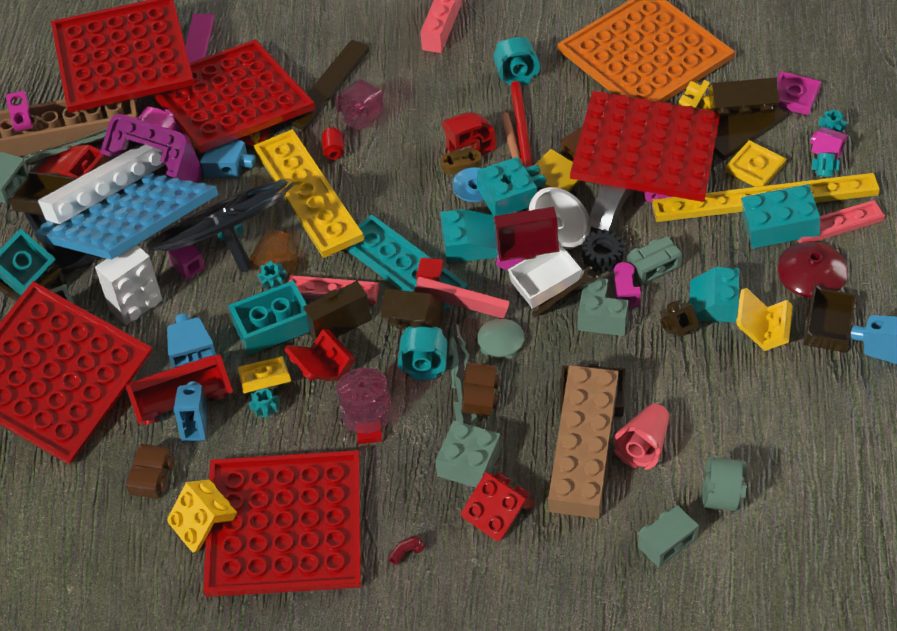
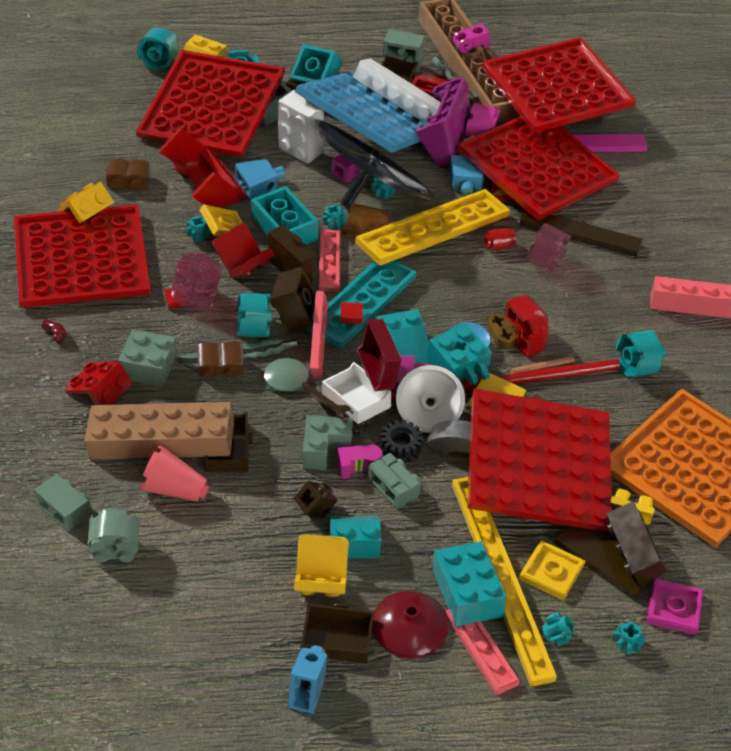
camera: 75 degrees right, 5 degrees down
(190, 400) = (181, 184): dark azure torso -> none
(828, 141) = (591, 631): dark pink brick -> none

